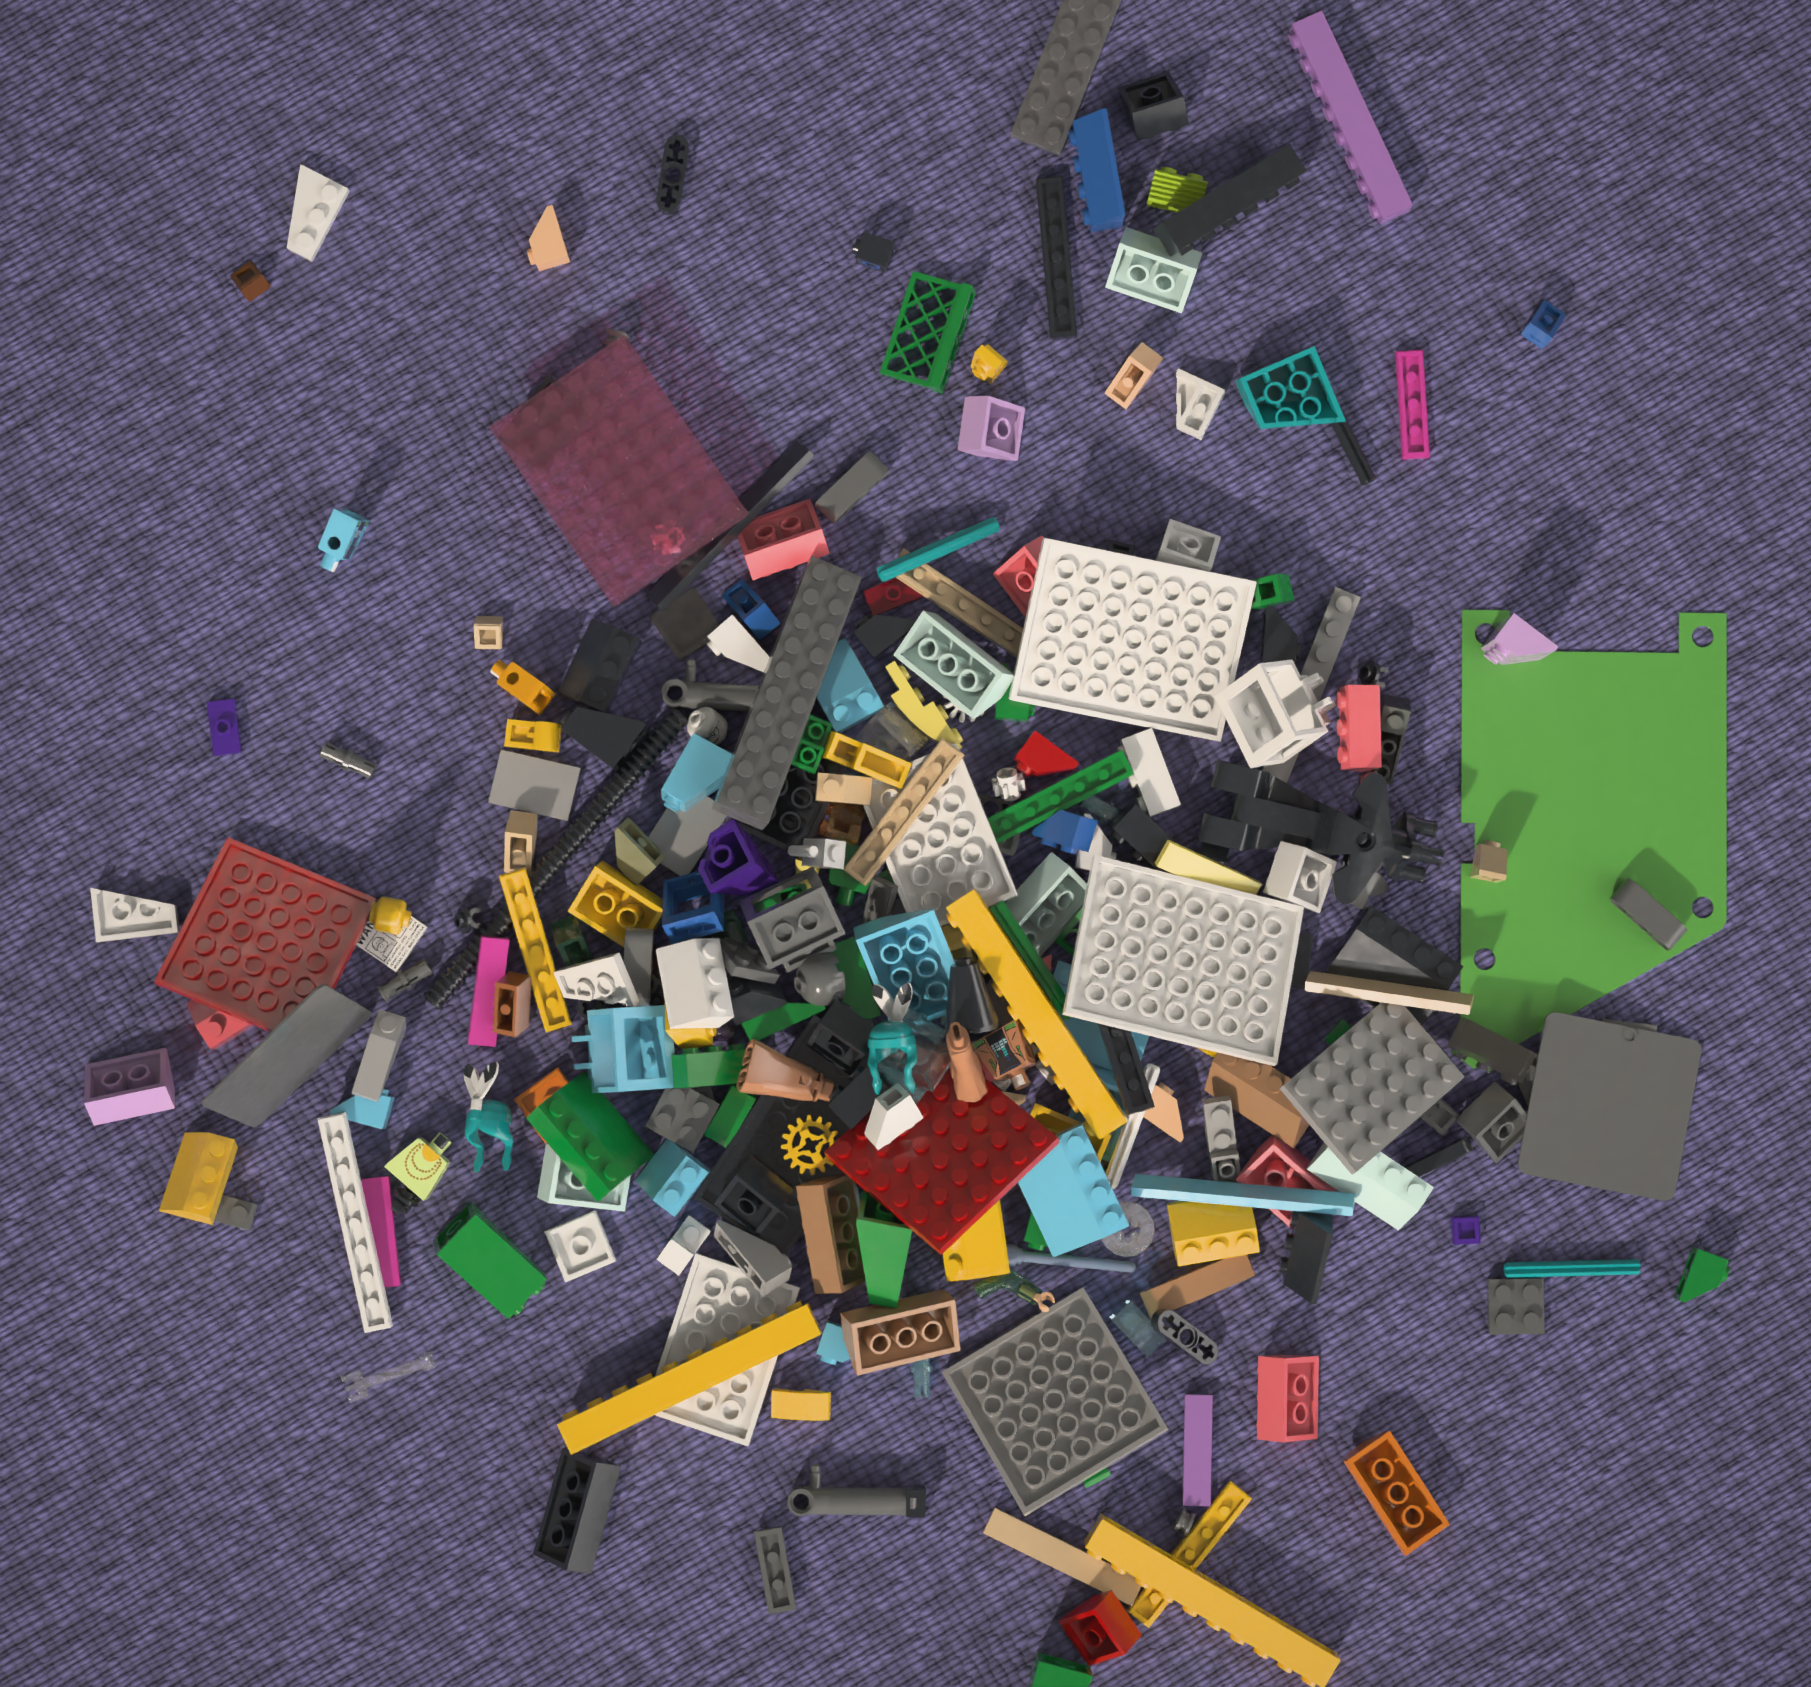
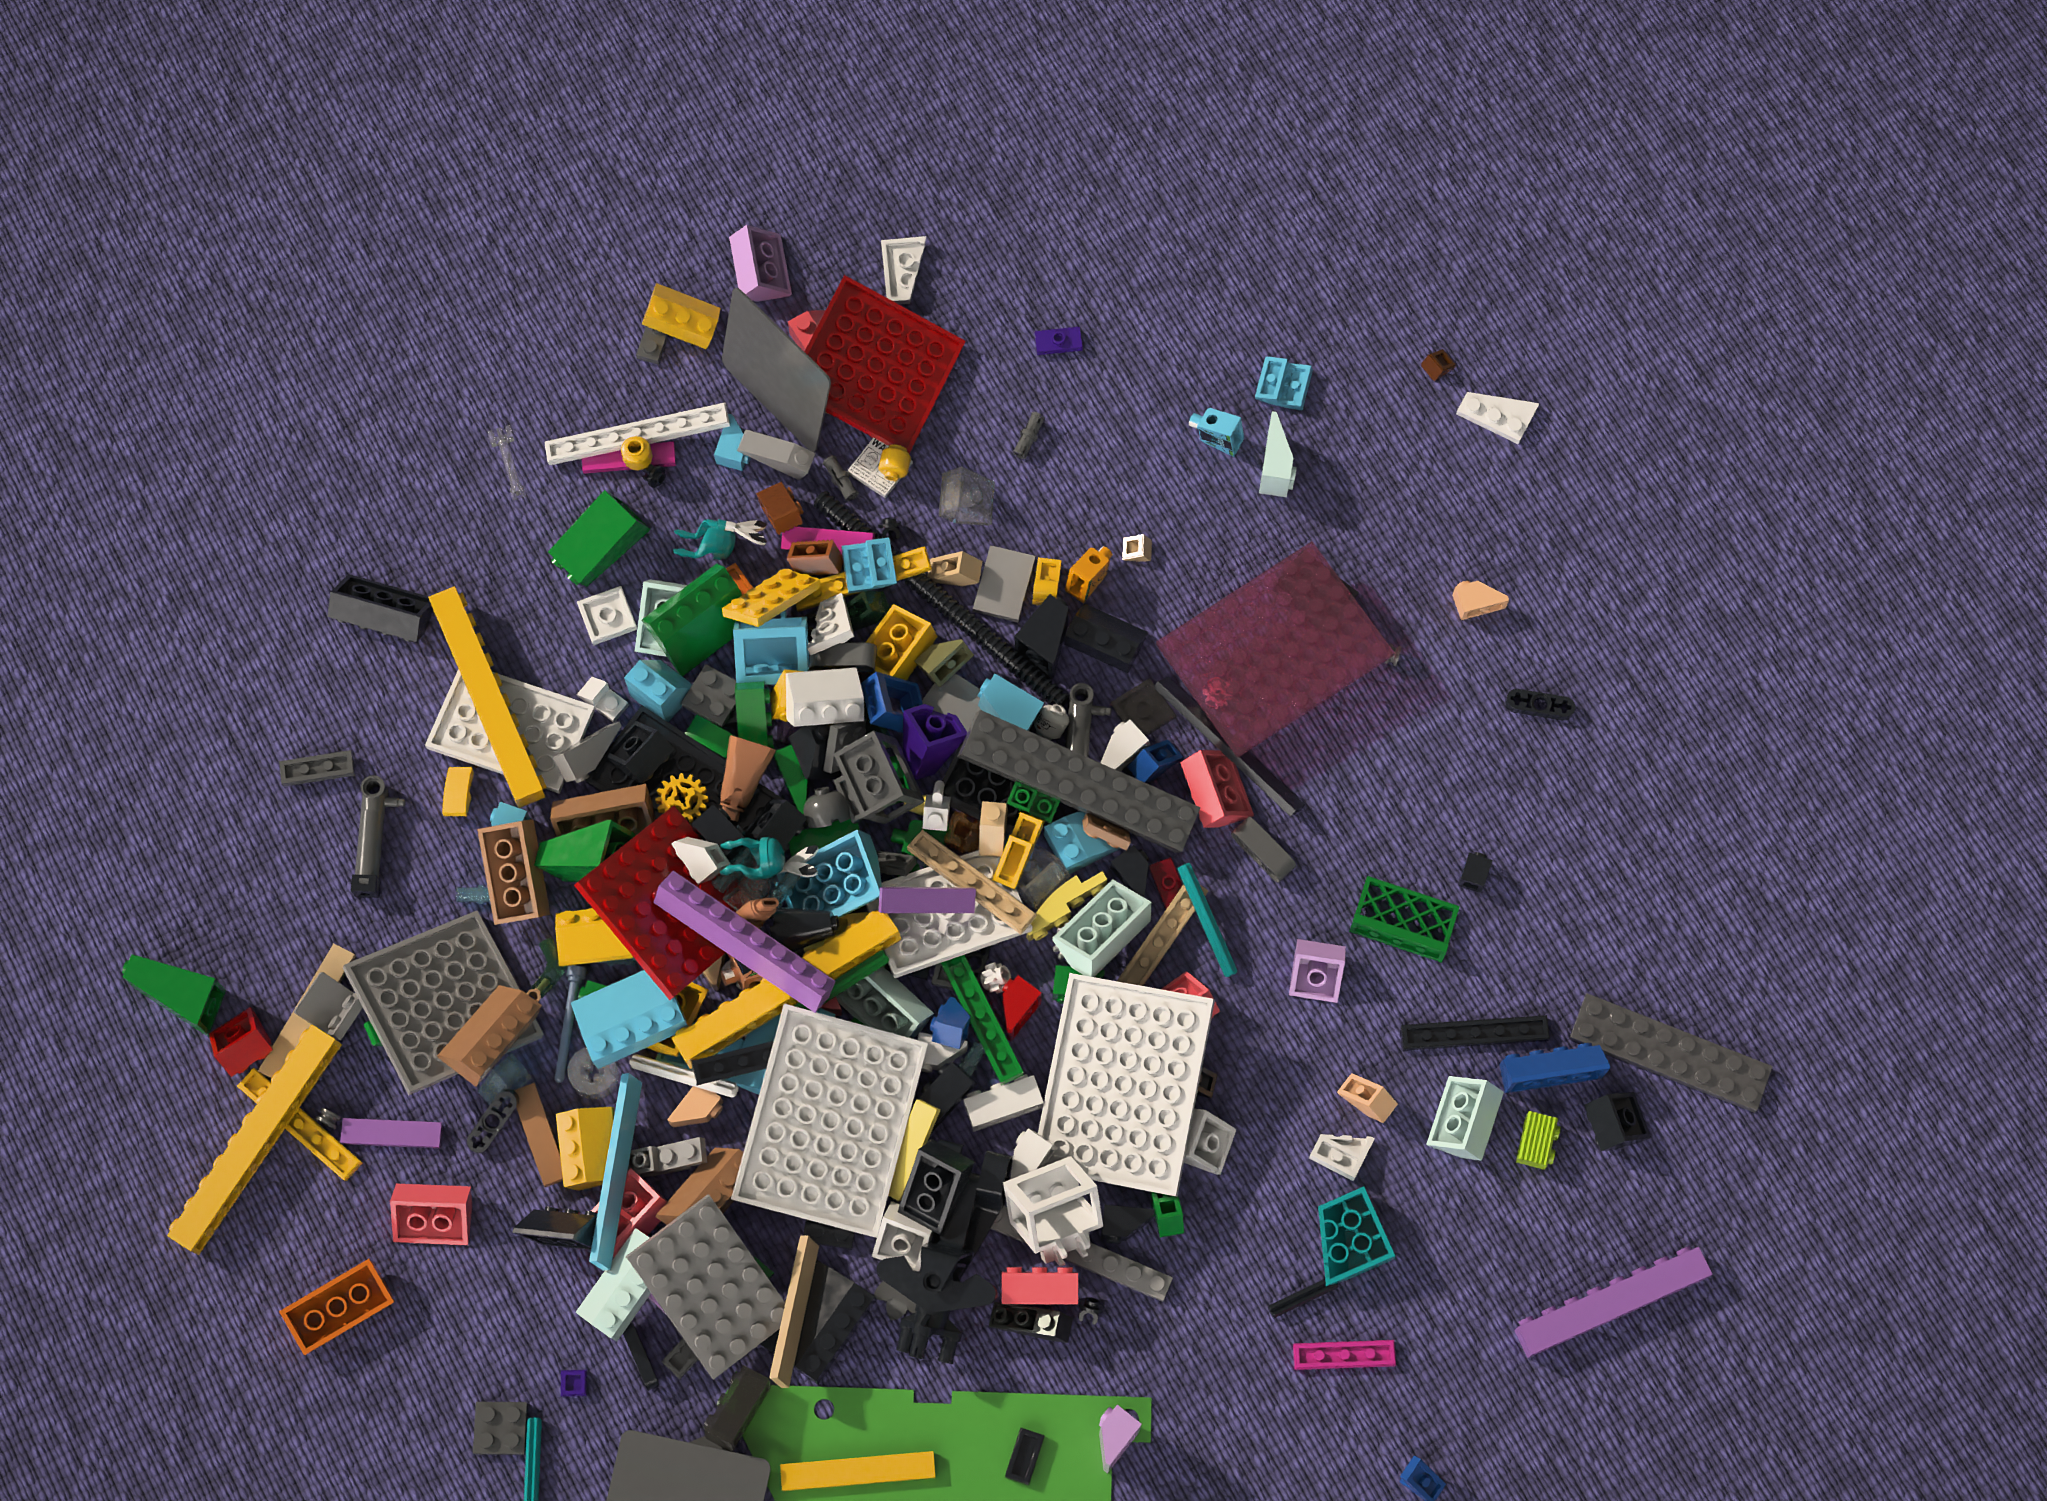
camera: 90 degrees right, 15 degrees down
(276, 461) = (1283, 383): none -> medium azure slope
(381, 468) = (1277, 471): none -> light aqua slope
(382, 1221) = (636, 453): none -> yellow head
(421, 1165) = (682, 488): yellowish green torso -> none
(429, 831) = (966, 497): none -> clear slope
(447, 1048) = (780, 508): none -> dark orange brick
(522, 940) = (868, 565): none -> medium azure slope
(567, 1052) = (771, 597): none -> yellow plate
(841, 662) = (1113, 835): none -> medium nougat plate
(934, 859) = (926, 900): none -> medium lavender tile
(987, 363) = (1376, 967): yellow plate -> none
(995, 1060) = (744, 941): none -> medium lavender brick
(1060, 1529) = (329, 1006): none -> light grey bracket
(1091, 1345) = (490, 1033): none -> medium nougat slope
(1212, 741) = (1031, 1153): none -> white slope
(1230, 200) = (1530, 1184): black brick -> none
(1253, 842) = (935, 1185): none -> black slope
(1489, 862) = (912, 1411): tan slope -> none
(1494, 1121) = (671, 1409): dark grey slope -> none
(1529, 743) = (1024, 1456): none -> black tile
(1550, 920) = (857, 1471): none -> yellow tile

